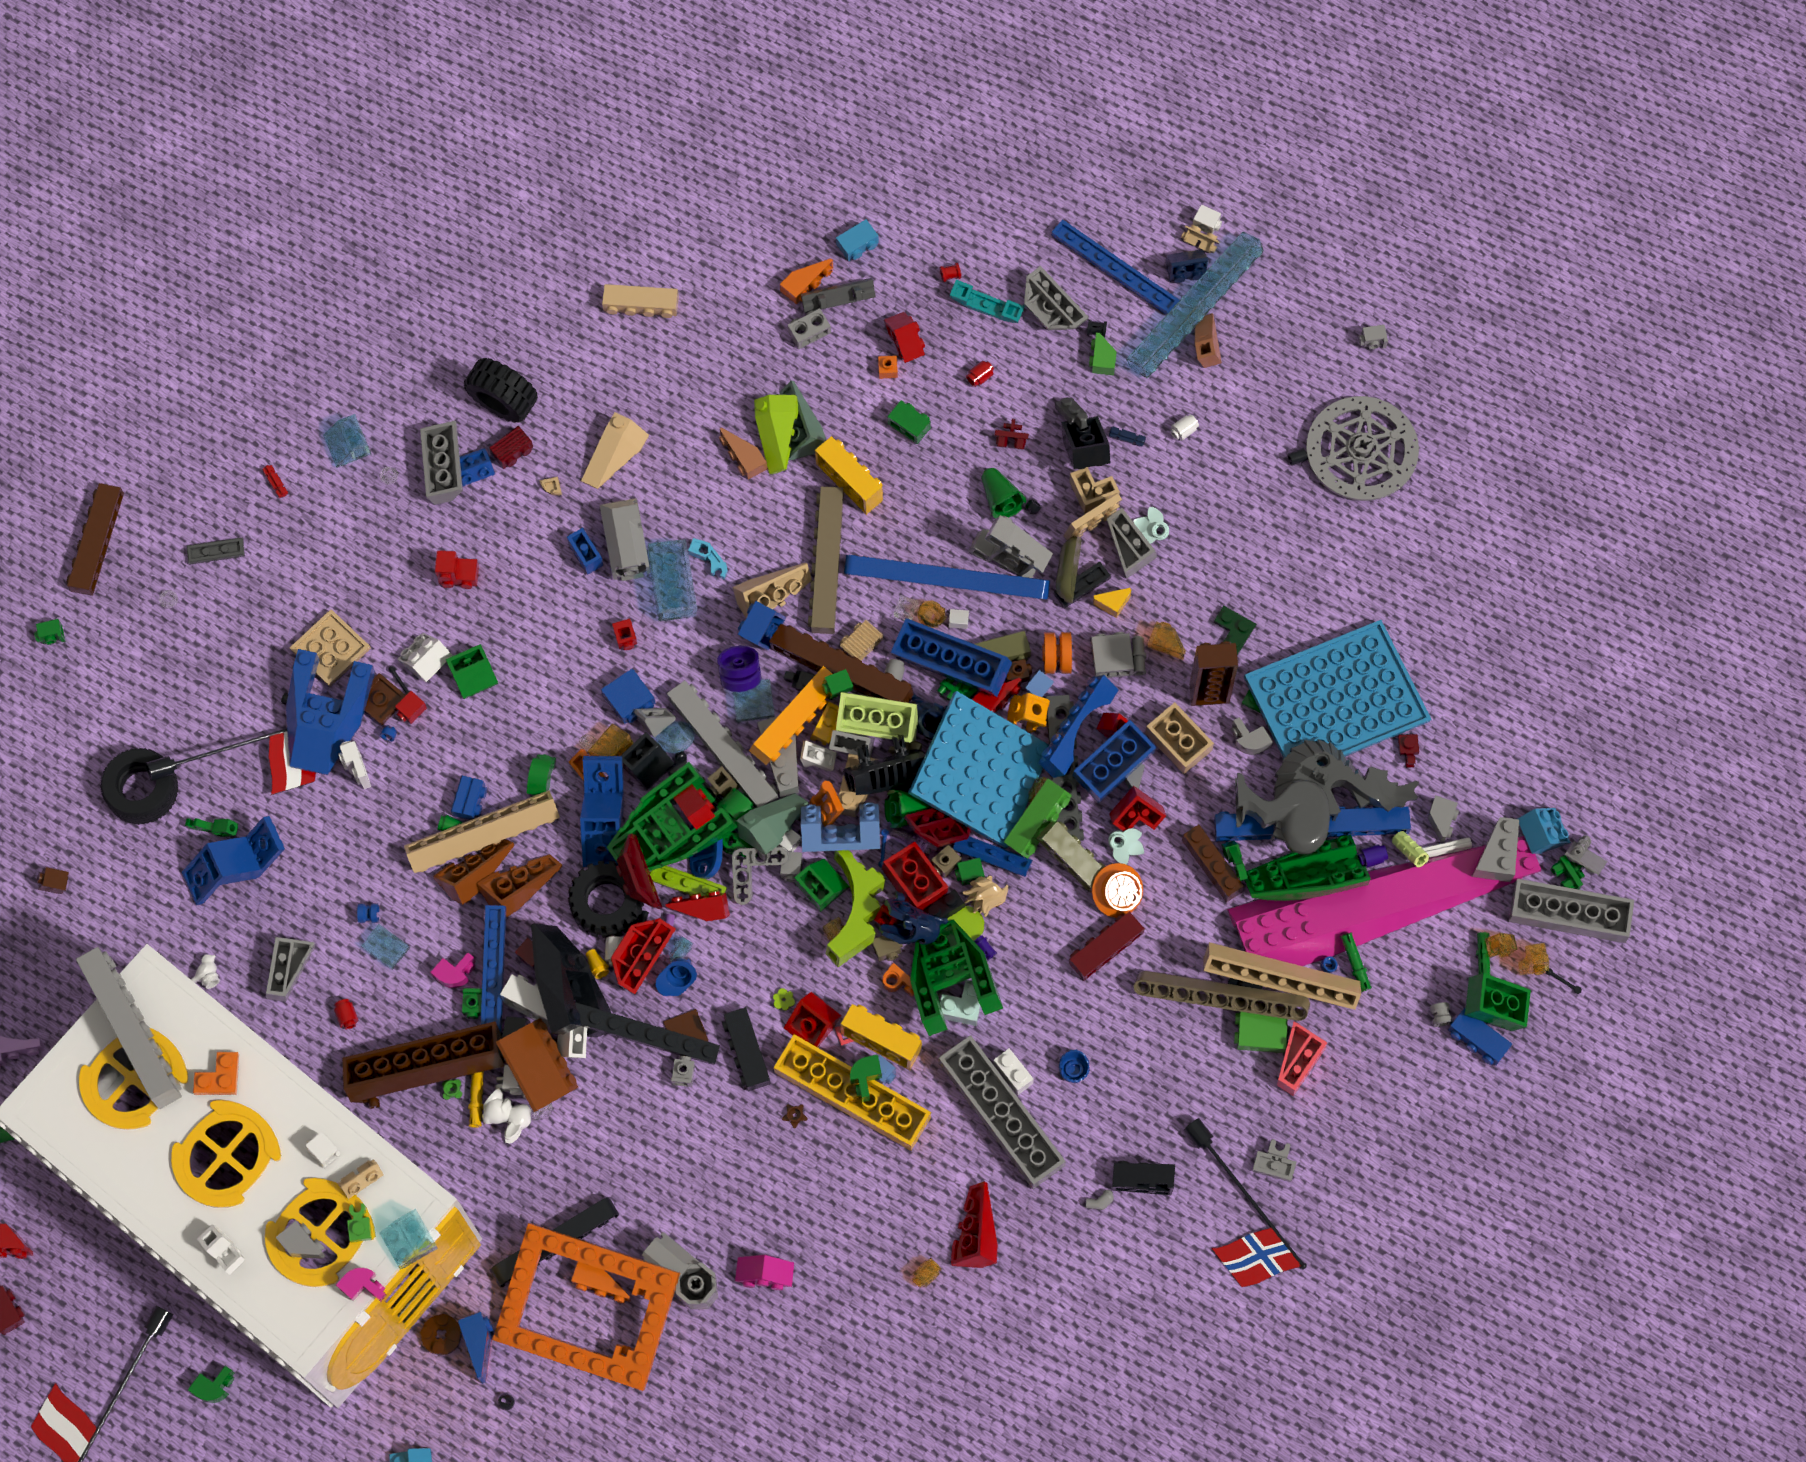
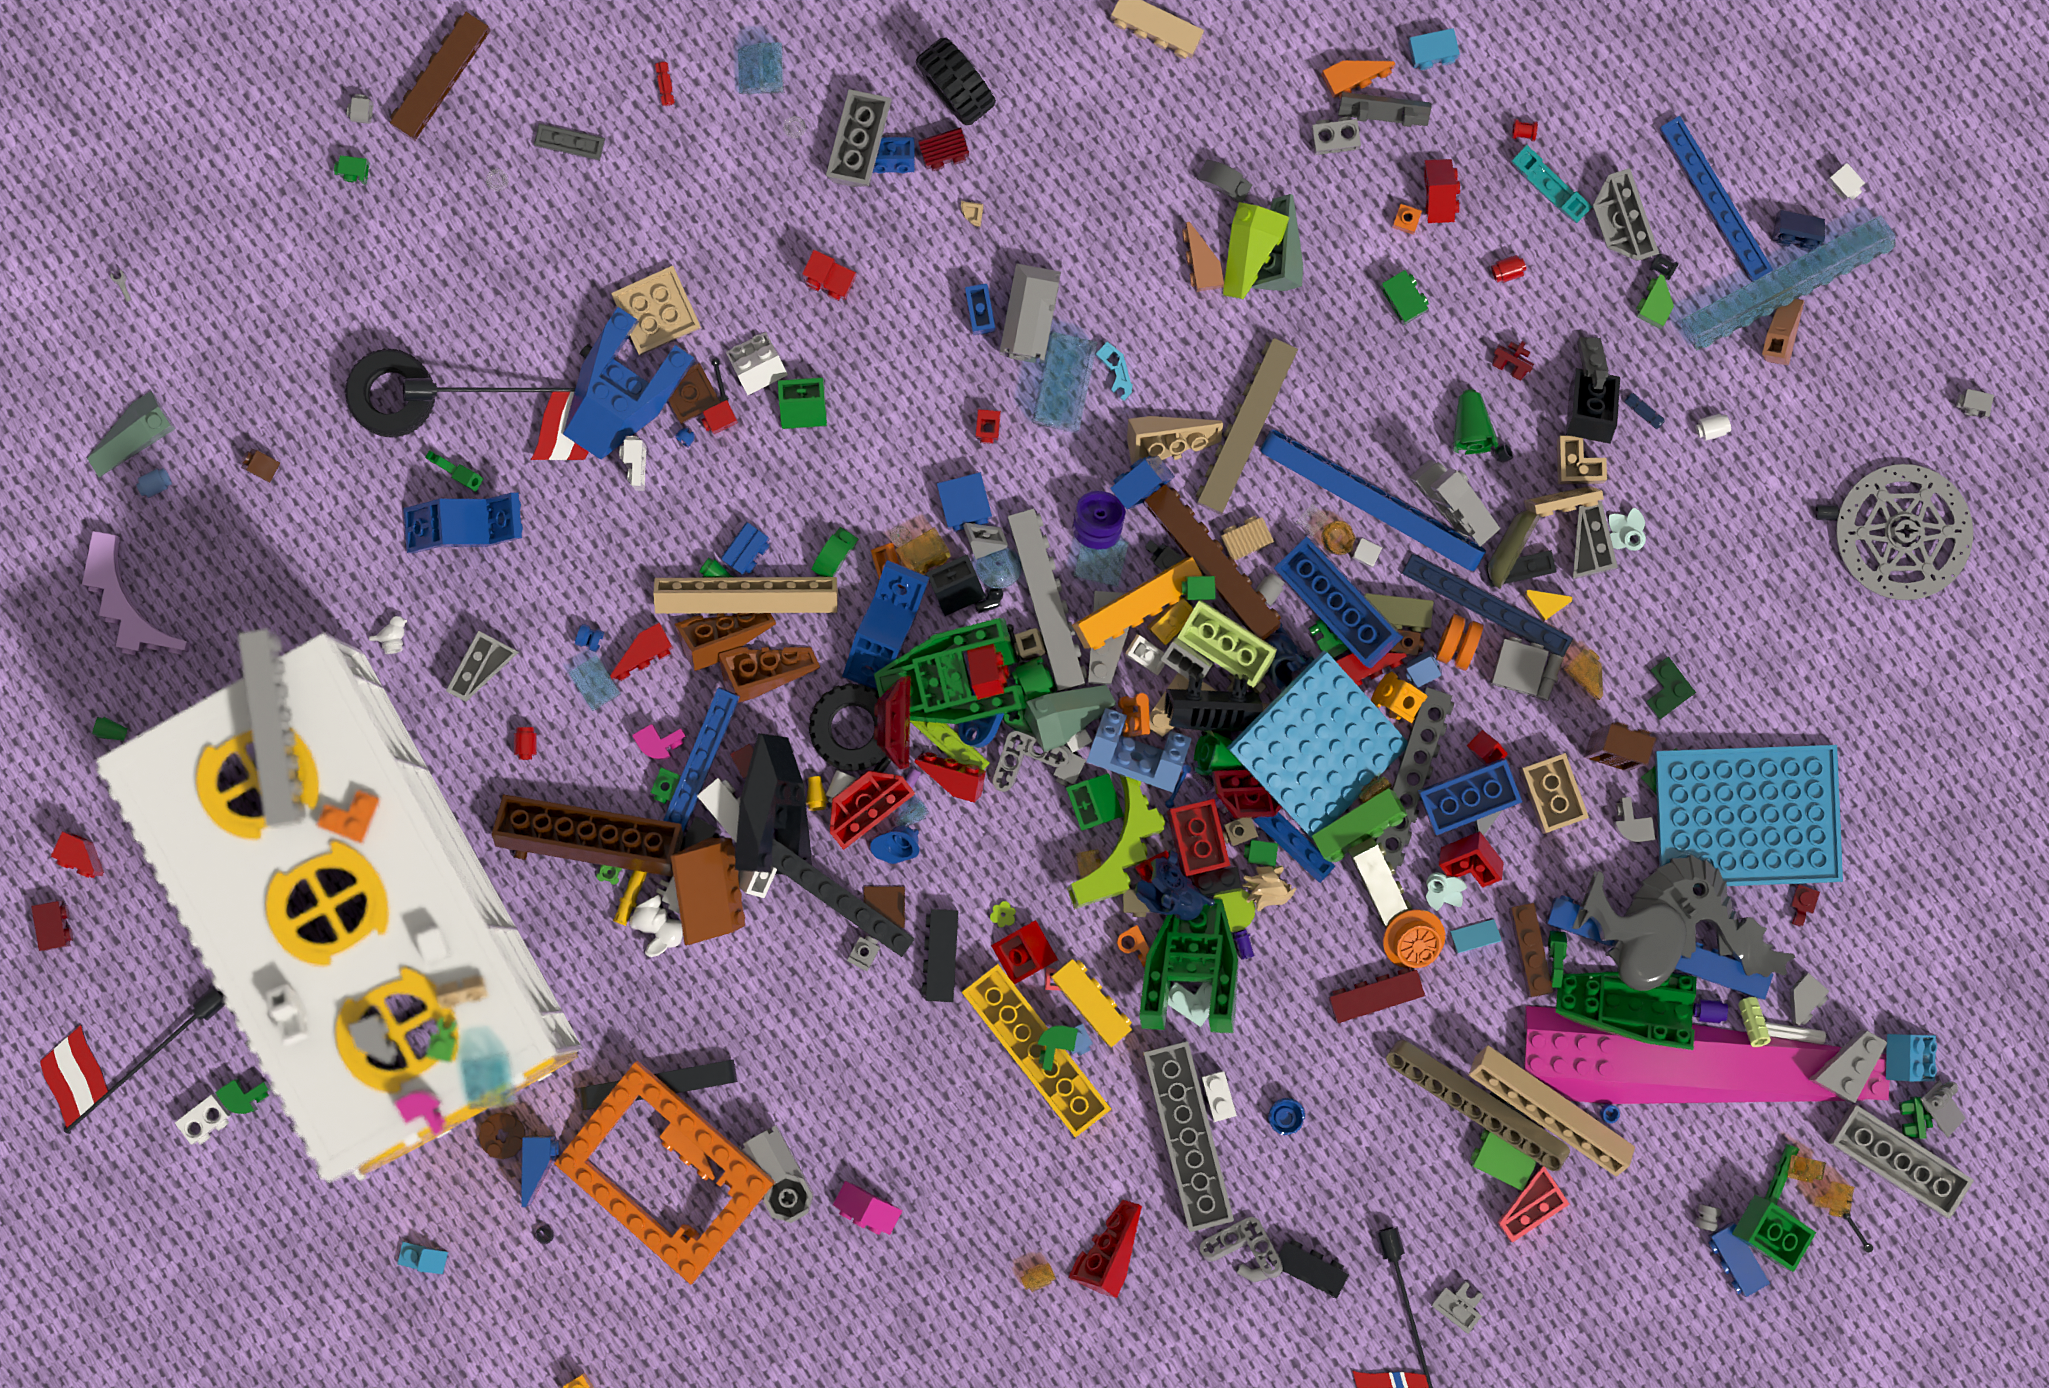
camera: 20 degrees right, 15 degrees up
(40, 586) = (360, 109): none -> light grey plate
(181, 1415) = (201, 1115): none -> white brick
(416, 903) = (646, 646): none -> red slope
(616, 447) = (1064, 194): tan wedge -> none
(736, 387) = (1225, 180): none -> dark grey brick
(794, 1120) = (965, 1040): reddish brown plate -> none
(849, 474) = (1310, 336): yellow brick -> none
(1060, 754) = (1413, 763): blue arch -> none
(1065, 621) = (1486, 605): none -> dark blue tile
(1080, 1176) = (1244, 1237): none -> light grey beam
(1165, 871) = (1475, 936): none -> medium azure slope
(1207, 241) = (1835, 207): tan hinge -> none
(1359, 970) = (1639, 1133): green pin -> none

